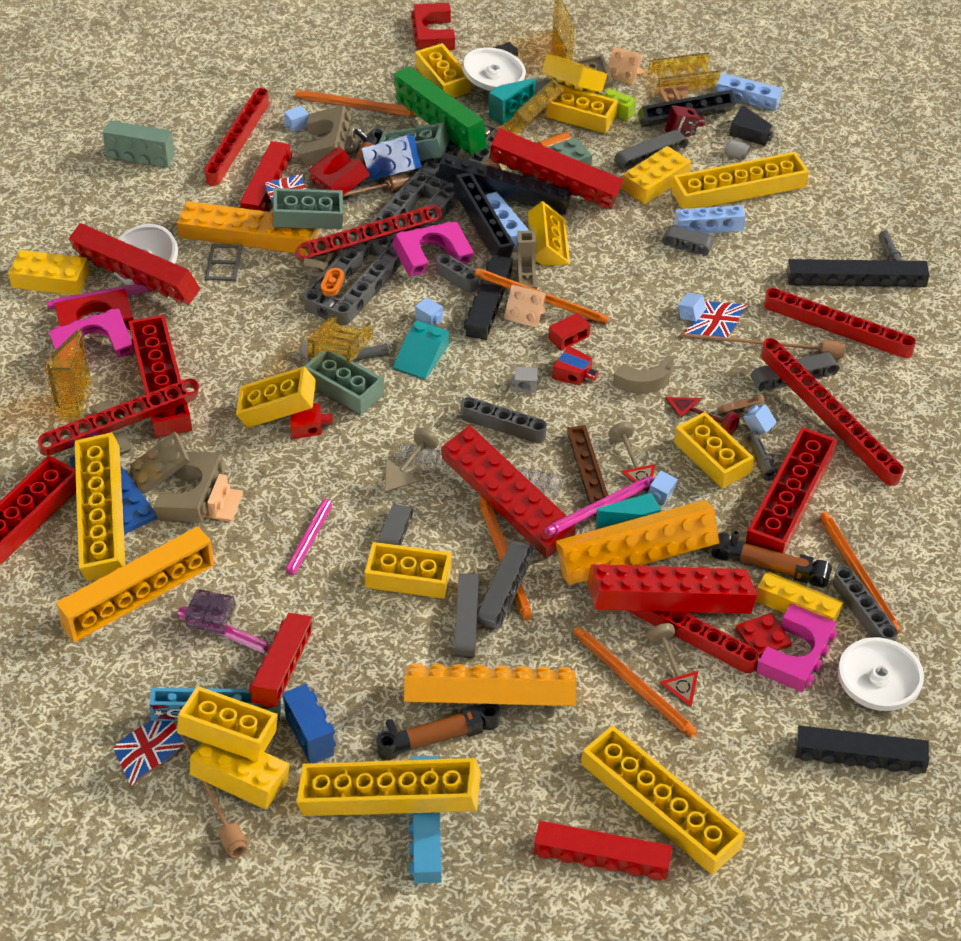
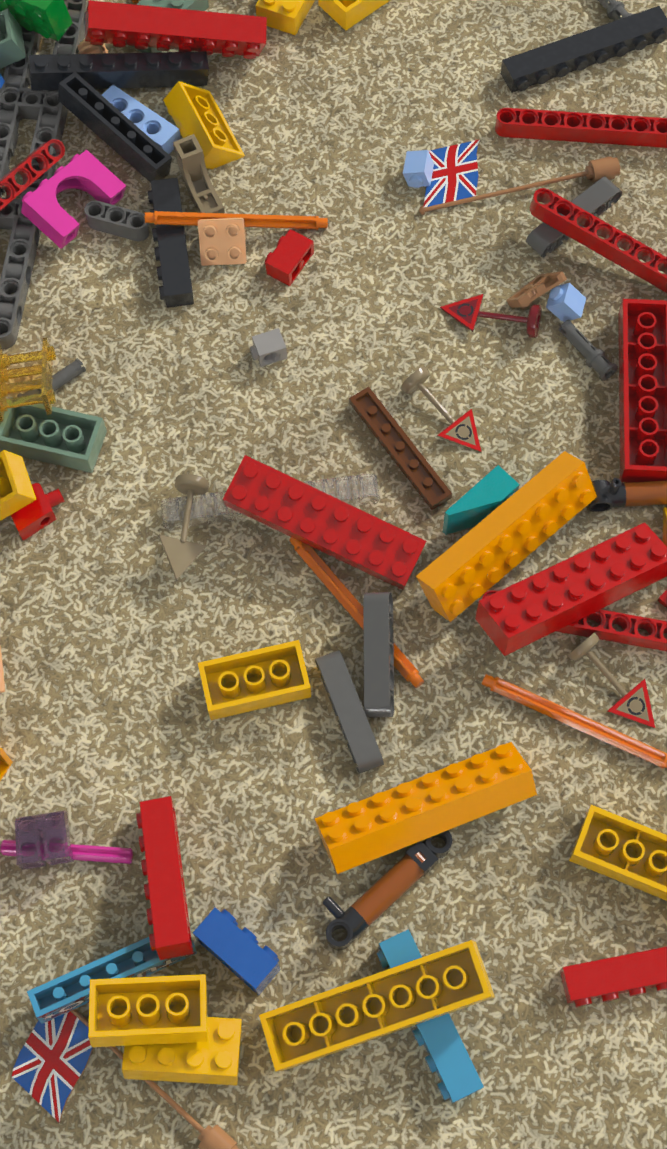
camera: 20 degrees left, 20 degrees up
(308, 537) = (110, 675): dark pink axle -> none
(396, 525) = (209, 623): dark grey beam -> none
(421, 349) = (124, 352): teal slope -> none
(429, 312) = (109, 292): light blue brick -> none
(503, 419) = (258, 409): dark grey beam -> none
(574, 367) = (318, 307): red torso -> none
(588, 511) = (441, 504): dark pink piece -> none
(644, 381) = (406, 298): dark tan arch -> none
(662, 487) = (495, 441): light blue brick -> none
(688, 240) = (370, 71): dark grey beam -> none
(711, 219) = (384, 34): light blue brick -> none
(713, 450) = (532, 366): yellow brick -> none

